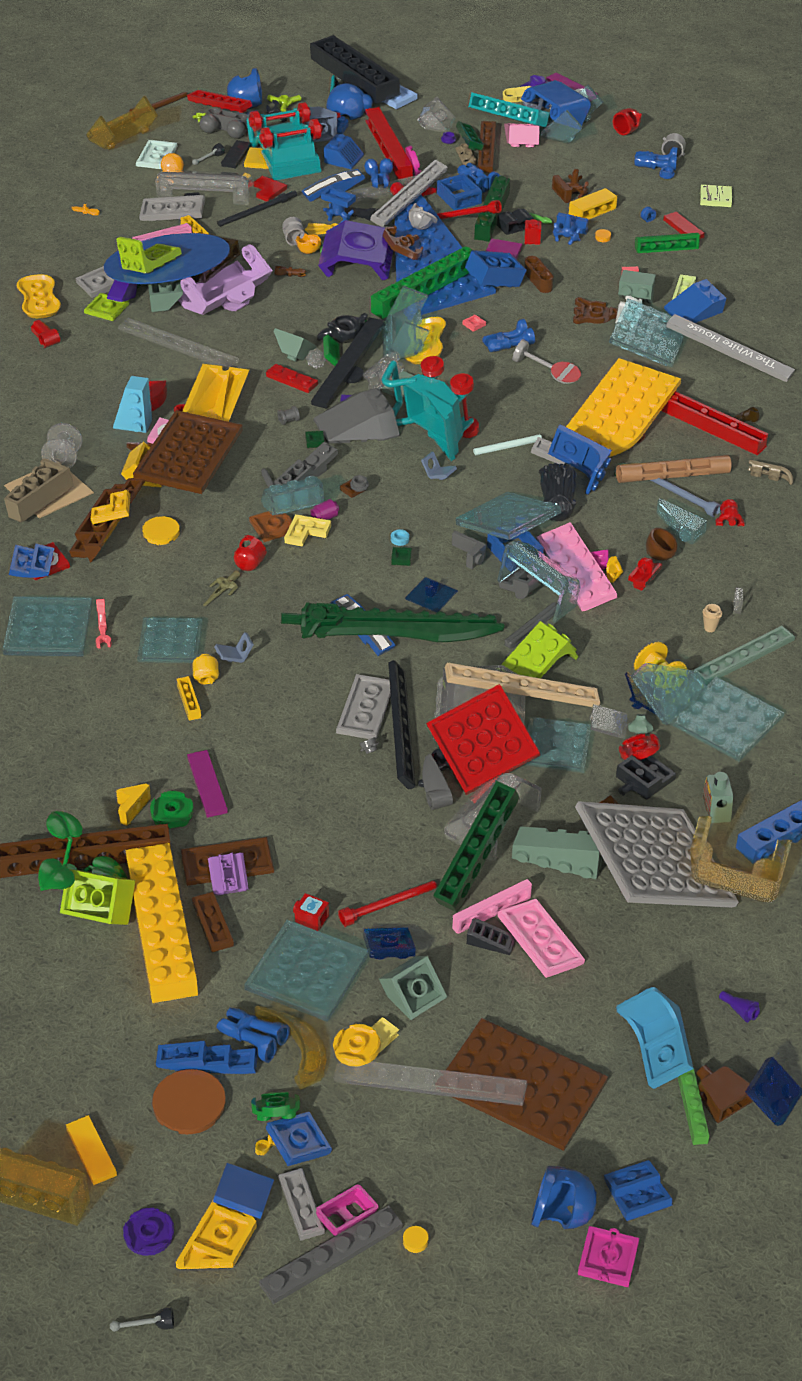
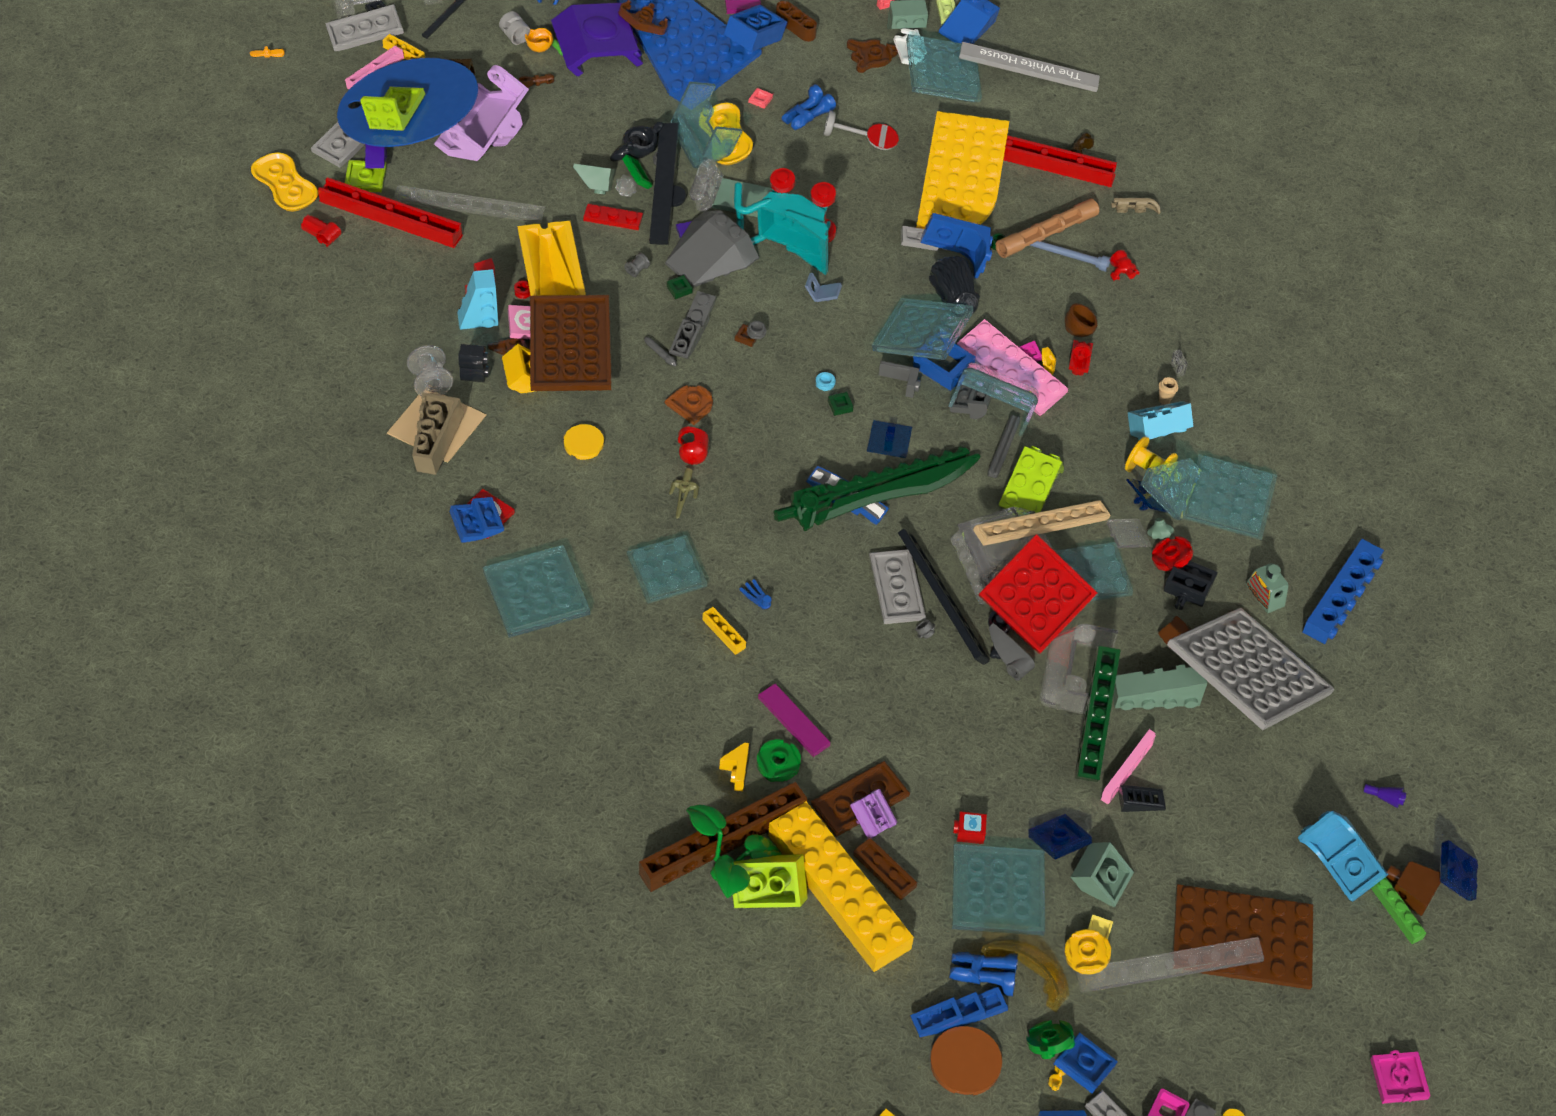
camera: 25 degrees left, 10 degrees up
(93, 536) = (525, 445): reddish brown slope -> none
(101, 449) = (473, 363): none -> black brick
(102, 624) = (584, 555): coral piece -> none
(109, 334) = (390, 212): none -> red tile
(118, 508) = (537, 434): yellow tile -> none
(164, 295) = (427, 151): sand green slope -> none
(205, 669) = (724, 593): yellow head -> none
(235, 653) = (740, 565): sand blue bracket -> none
(238, 684) = (761, 600): none -> blue piece
(293, 495) = (701, 365): clear light blue slope -> none
(304, 526) = (727, 395): light yellow plate -> none
(314, 228) = (538, 15): yellow piece -> none
(325, 510) = (737, 372): magenta brick -> none
(349, 915) = (1005, 819): red piece -> none
(425, 280) = (691, 64): green brick -> none
(505, 445) = (871, 240): light aqua bar -> none
(541, 938) = (1185, 783): bright pink tile -> none
(561, 1189) = (1329, 1037): blue piece -> none
(638, 1190) = (1390, 1005): blue slope -> none
(681, 522) = (1084, 288): clear light blue slope -> none
(692, 639) = (1160, 420): none -> medium azure wedge
(745, 654) = (1210, 420): sand green tile -> none
(760, 884) = (1346, 660): clear yellow windscreen -> none

